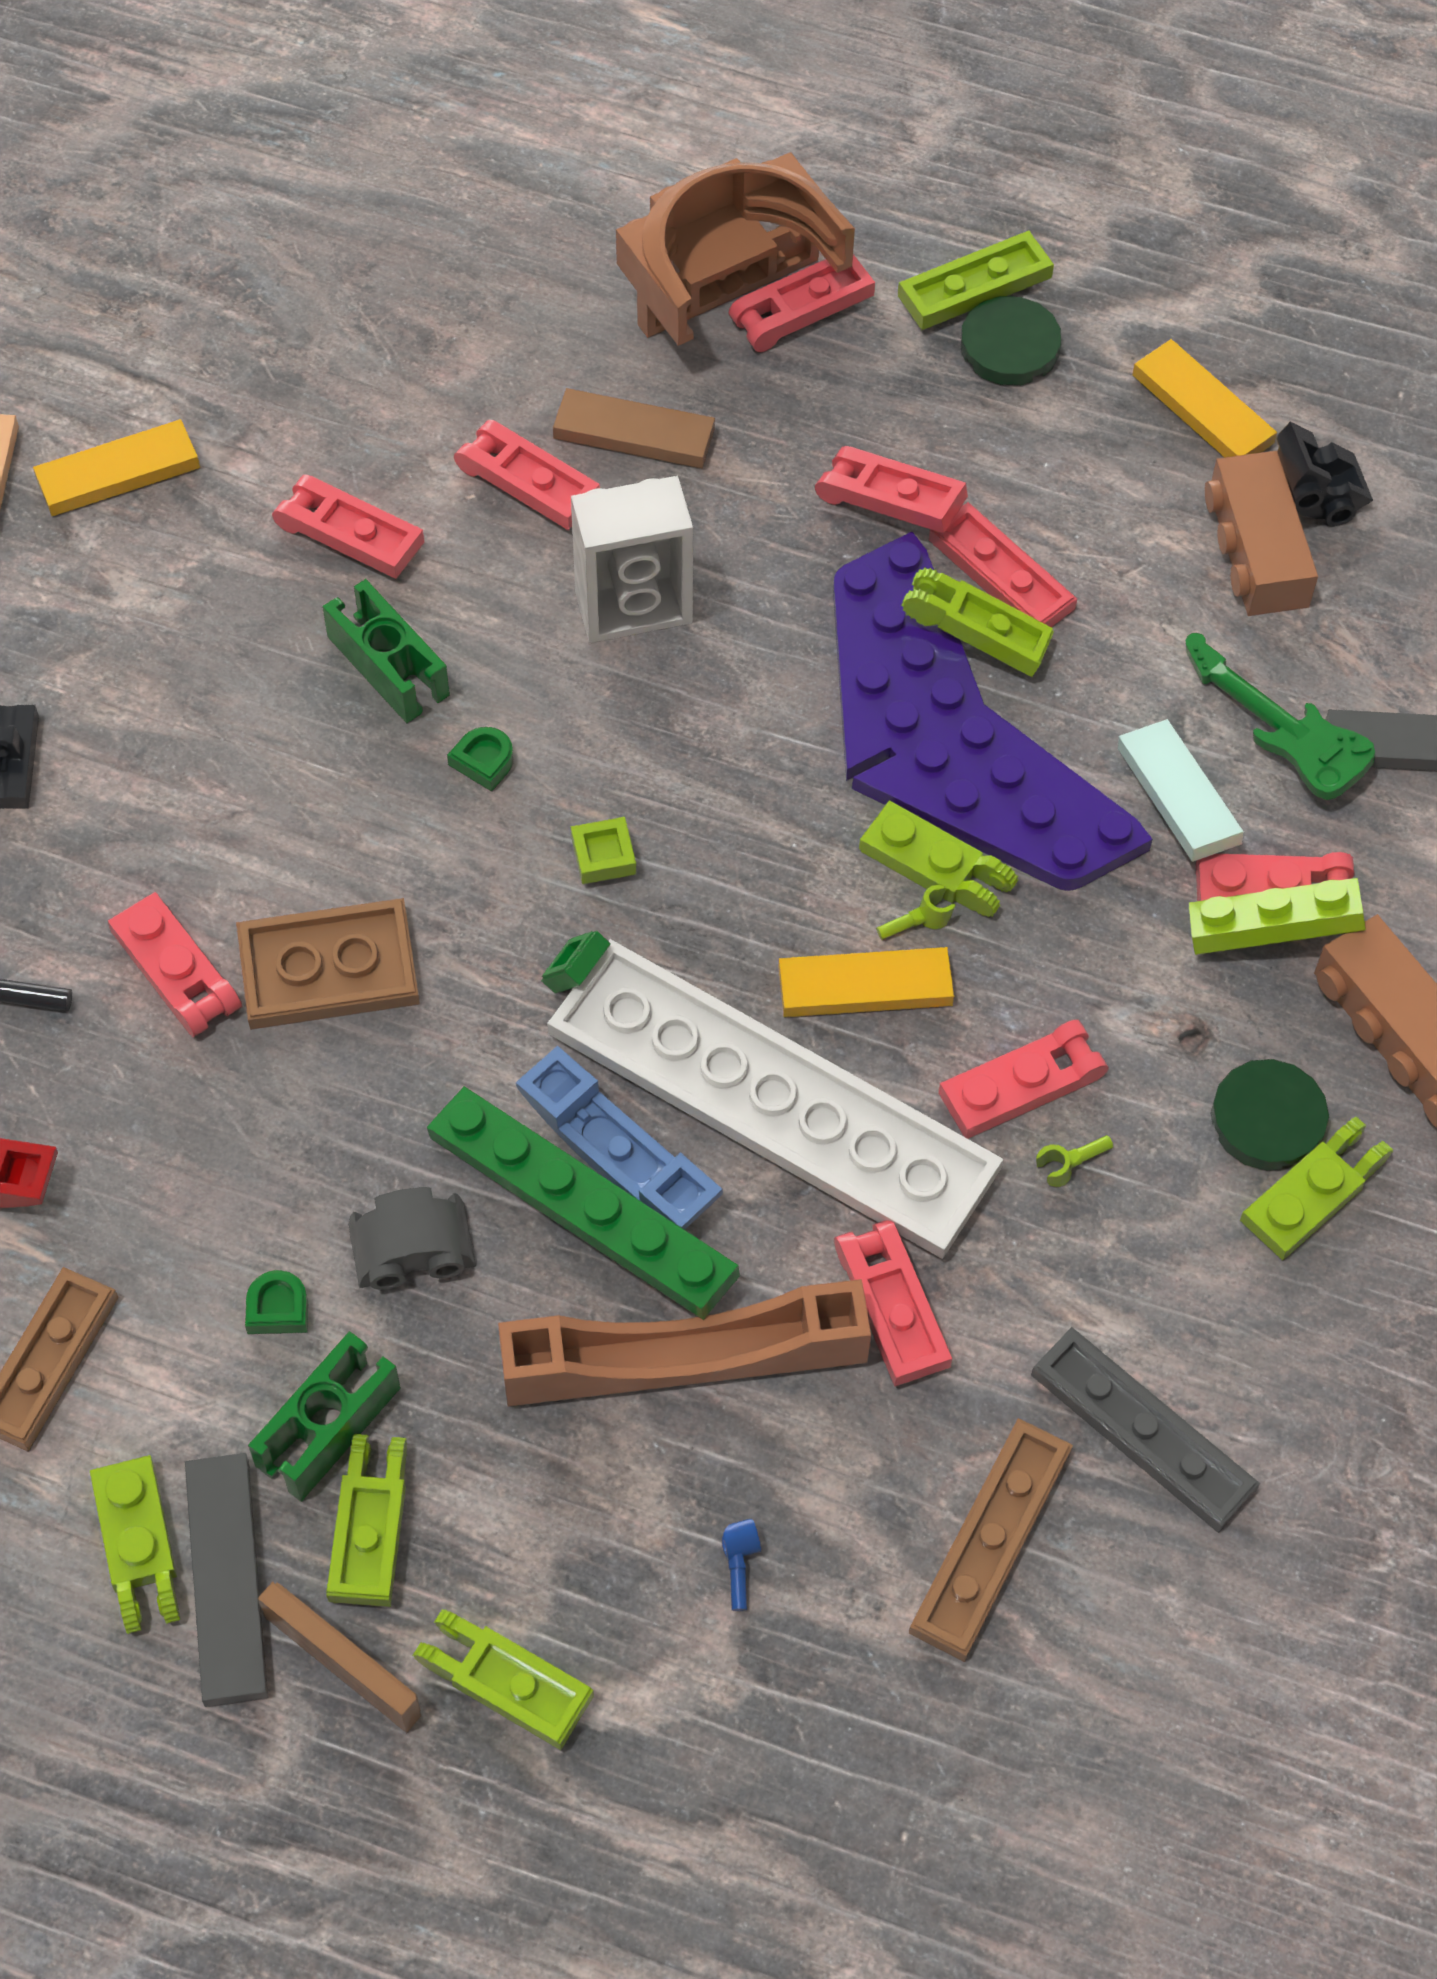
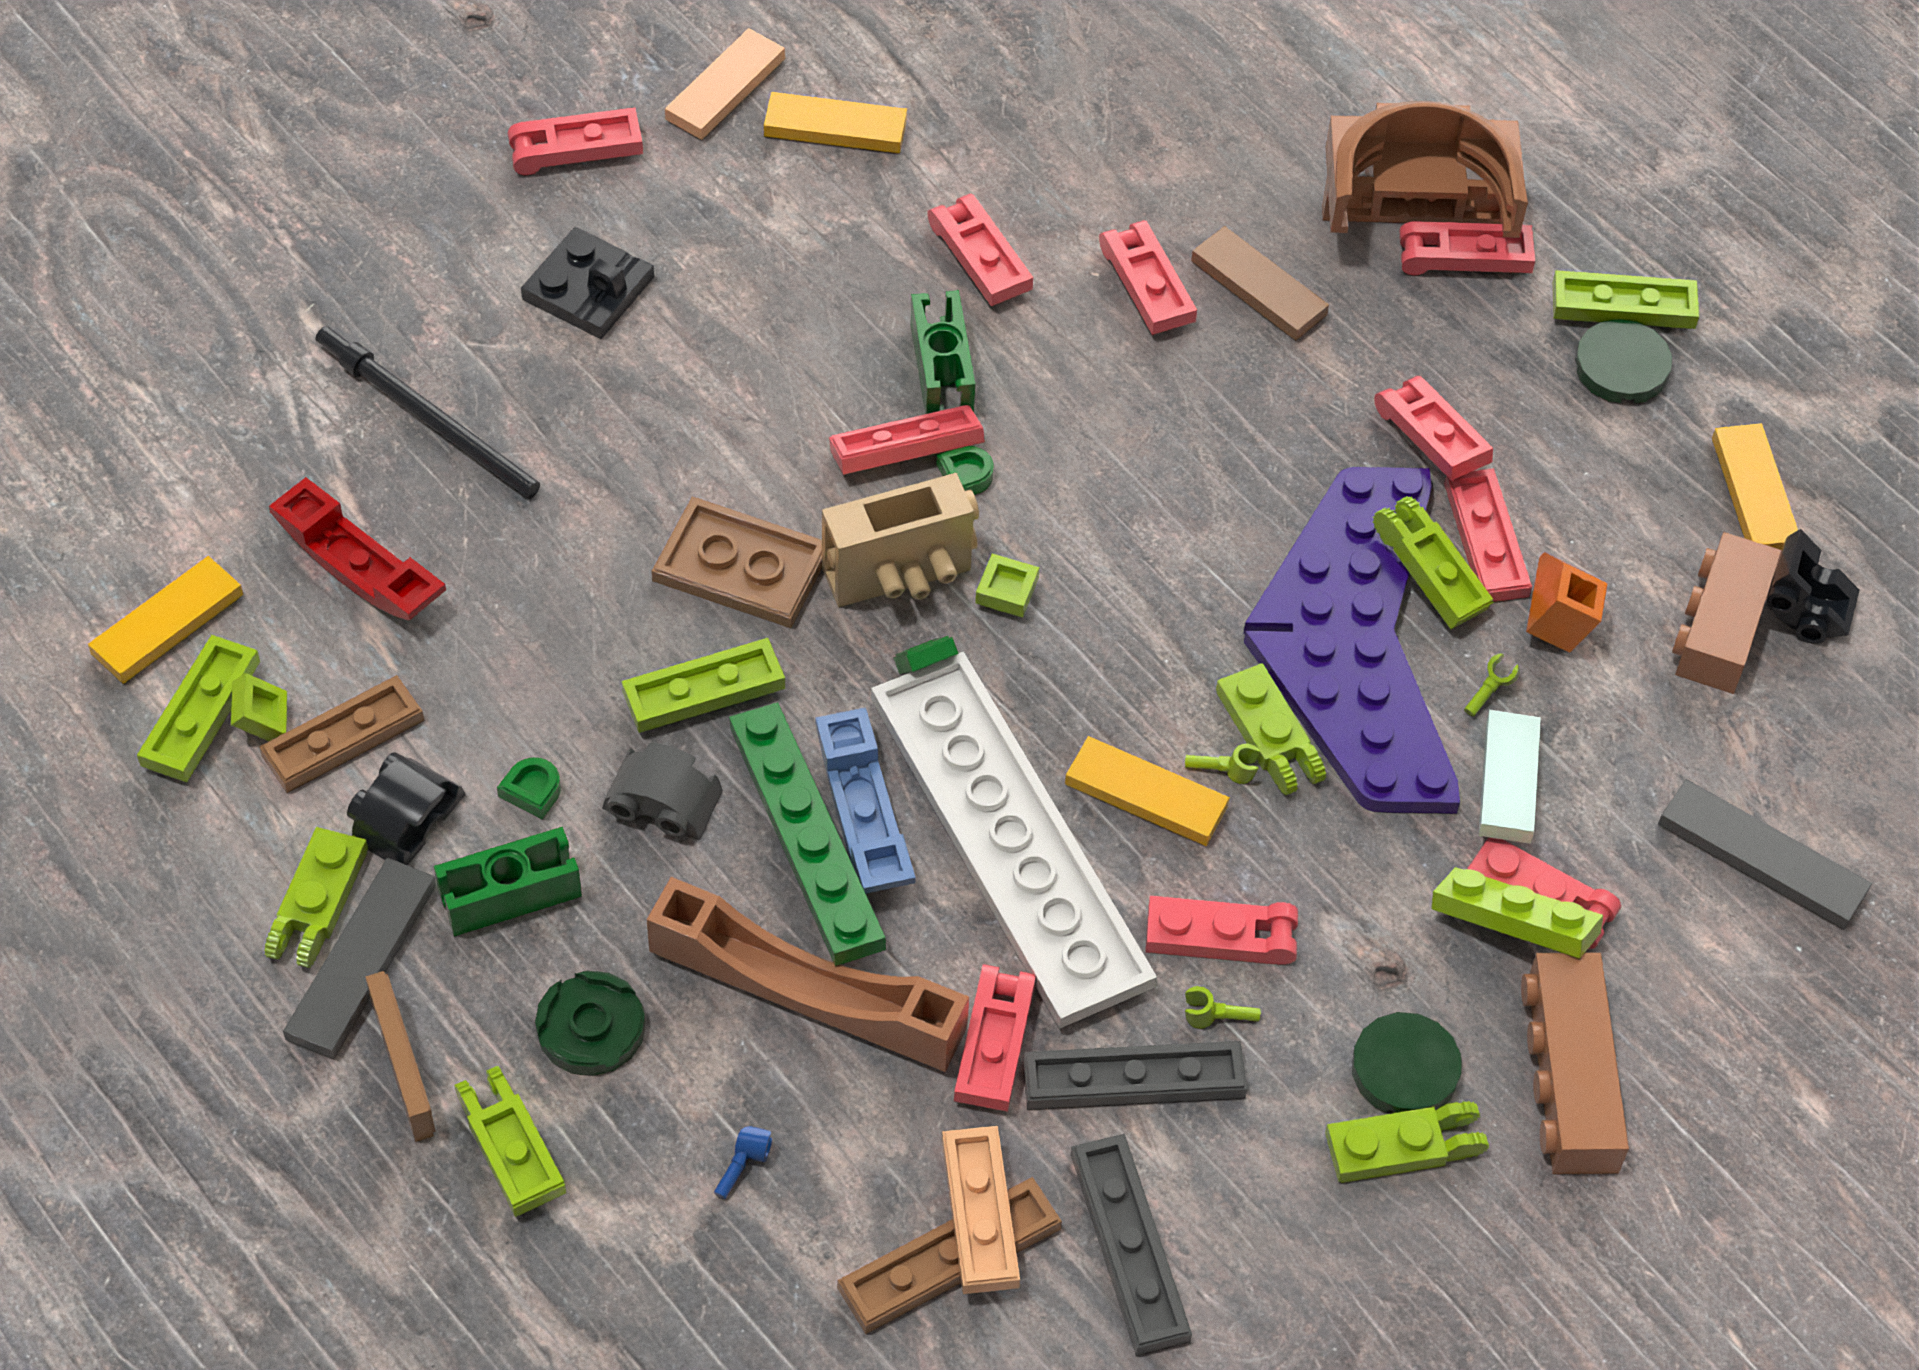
camera: 30 degrees right, 5 degrees down
(164, 1401) = (402, 807): none -> black cylinder
(173, 963) = (626, 502): coral plate -> none
(368, 1527) = (486, 976): lime hinge -> none
(379, 1109) = (703, 685): none -> lime plate
(407, 755) = (906, 439): none -> coral tile
(481, 863) = (899, 540): none -> tan piece
(499, 1512) = (590, 1023): none -> dark green tile
(633, 558) = (1170, 372): white brick -> none
(997, 1479) = (980, 1210): none -> light nougat tile
(1038, 1265) = (1134, 1075): none -> dark grey tile
(1102, 711) = (1490, 685): none -> lime hand
(1121, 597) = (1564, 603): none -> orange slope
(1323, 754) = (1652, 808): green piece -> none

